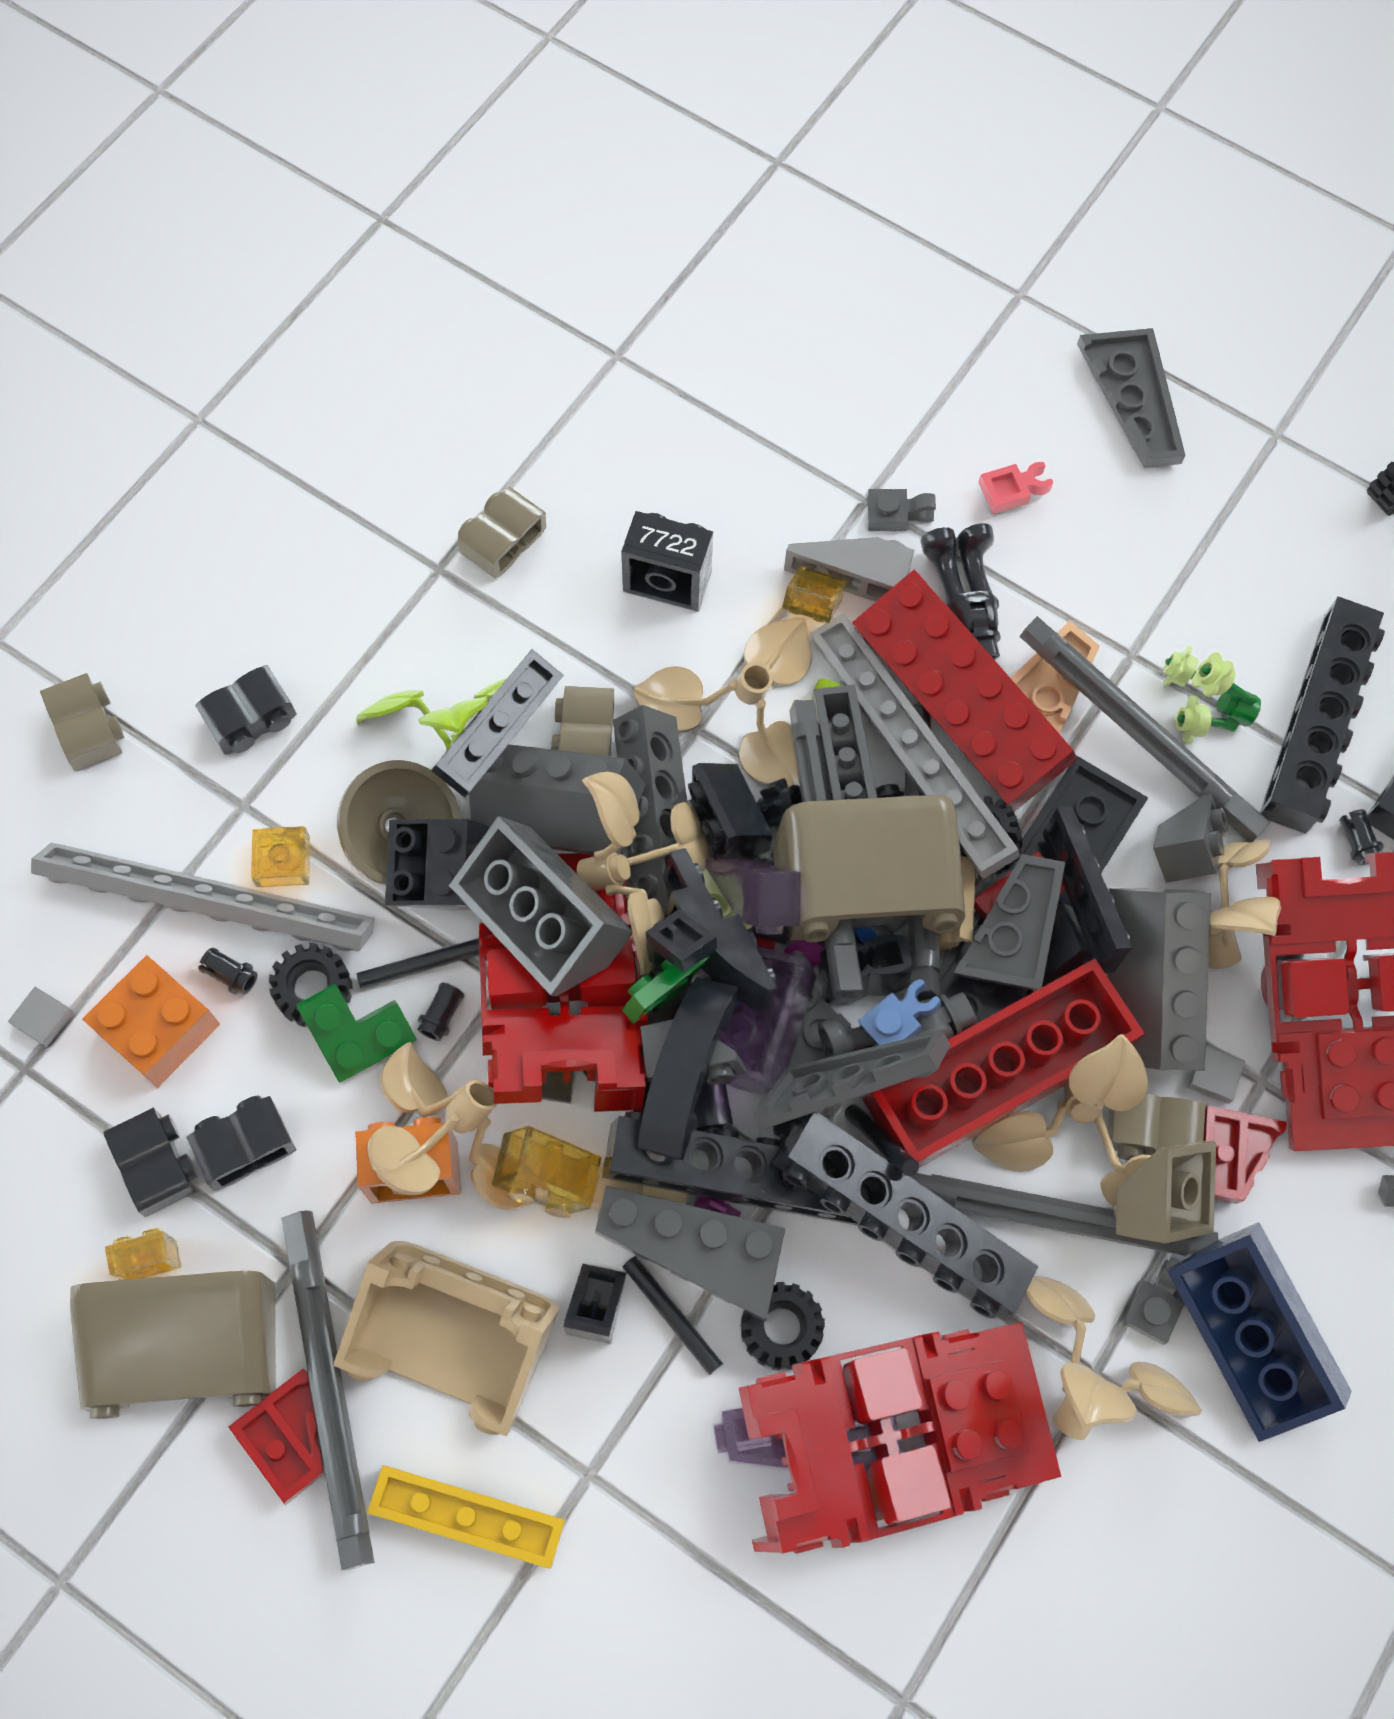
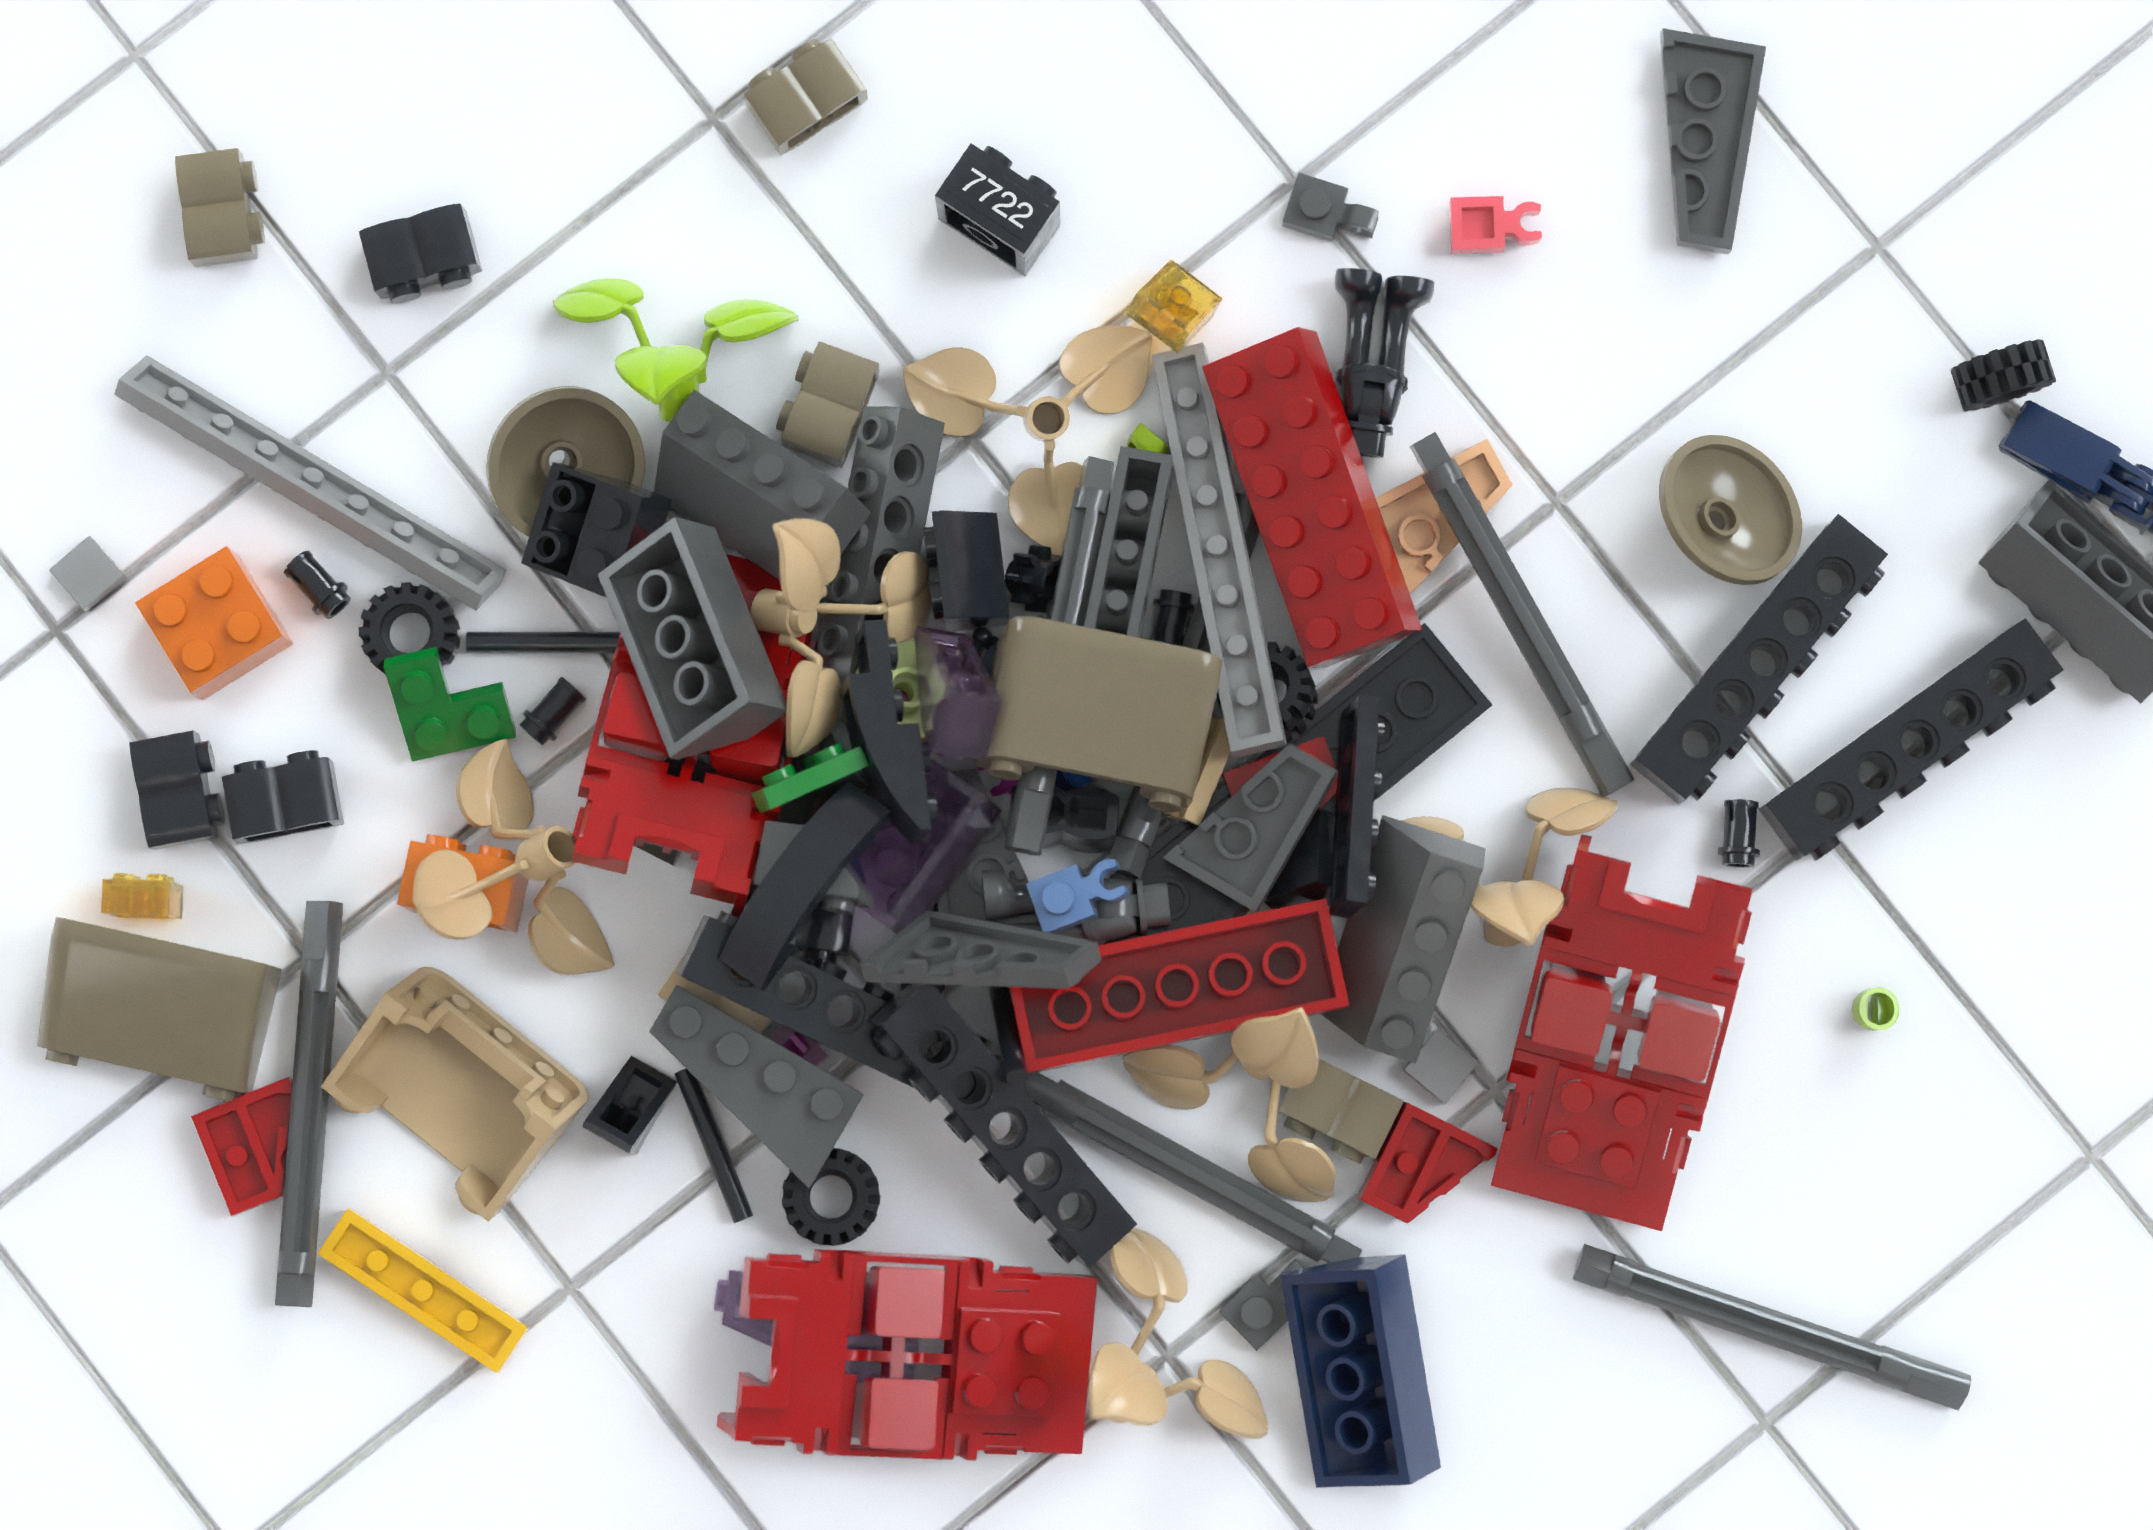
camera: 20 degrees right, 15 degrees up
(280, 856) = (415, 457): clear yellow piece -> none
(497, 723) = (729, 374): plate -> none
(546, 1171) = (616, 945): clear yellow brick -> none
(679, 941) = (836, 740): black bracket -> none
(866, 564) = (1252, 282): light grey slope -> none
(1169, 1195) = (1311, 1196): dark tan slope -> none
(1191, 841) = (1520, 776): dark grey slope -> none
(1215, 679) = (1623, 586): yellowish green plant -> none
(1260, 617) = (1730, 509): none -> dark tan dish

